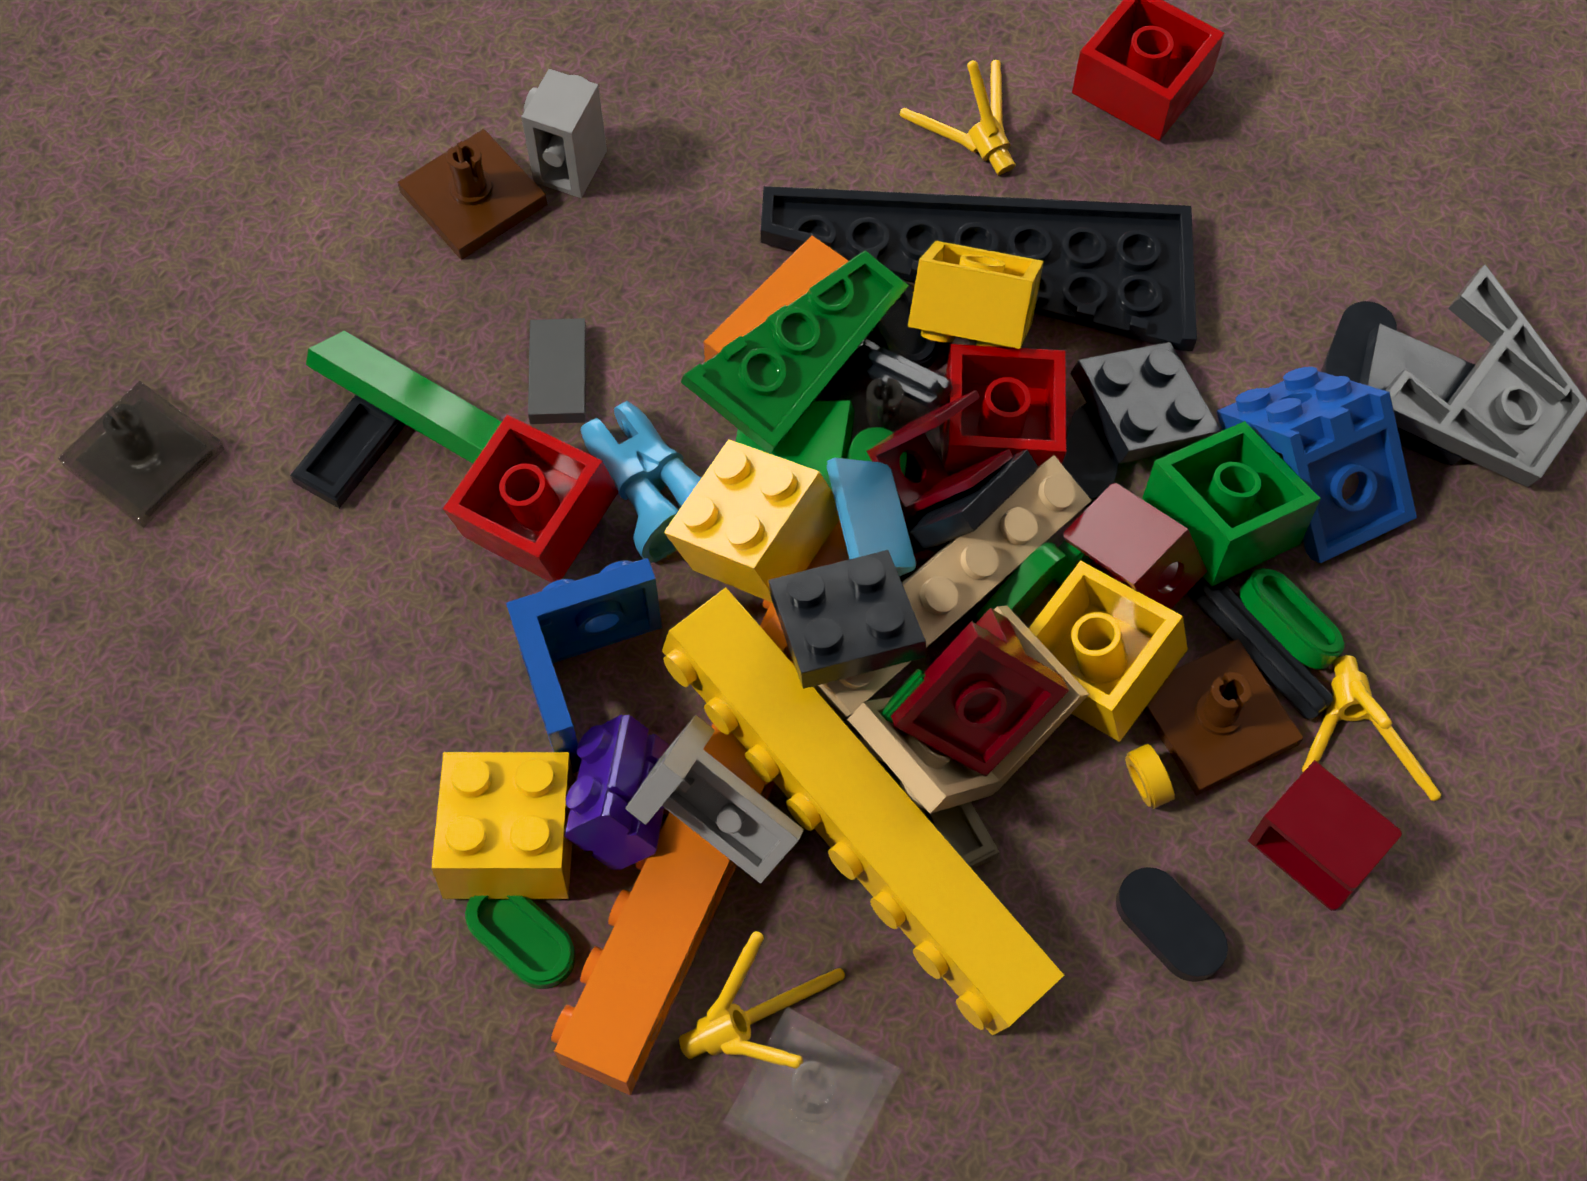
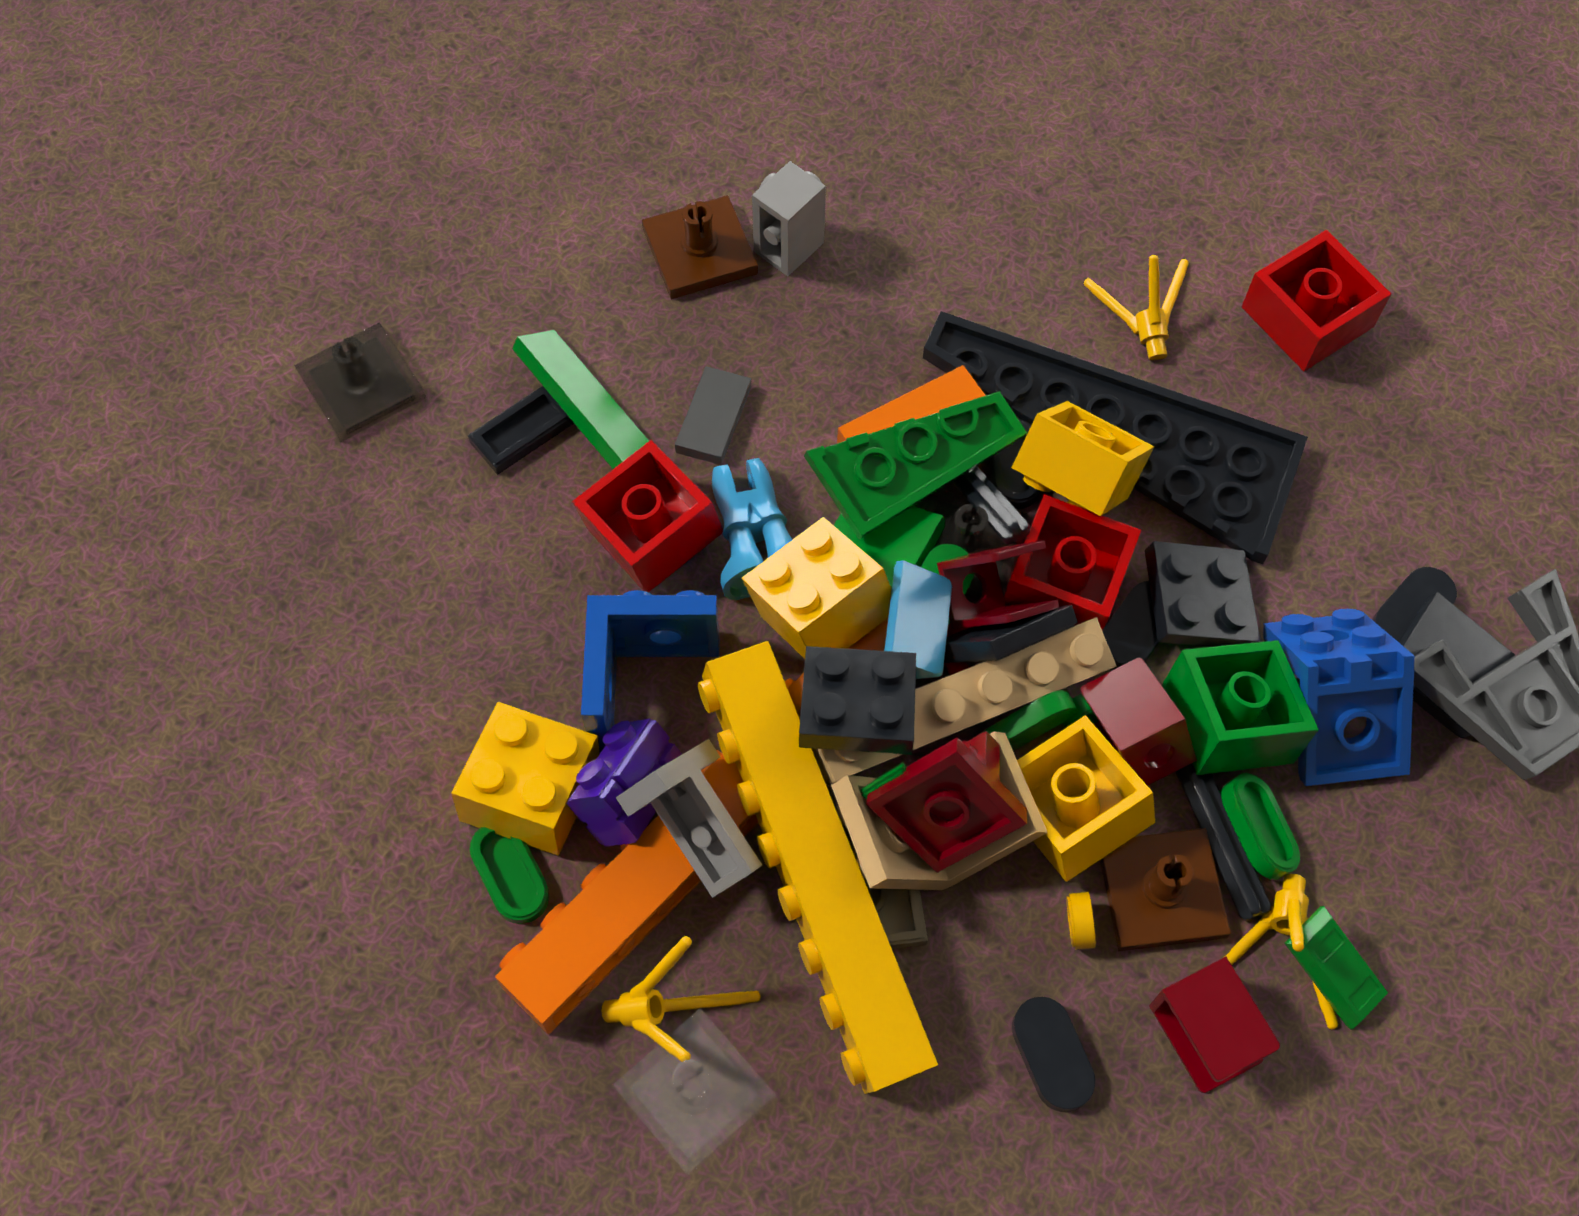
camera: 20 degrees right, 0 degrees up
(1423, 736) = (1338, 969): none -> green tile

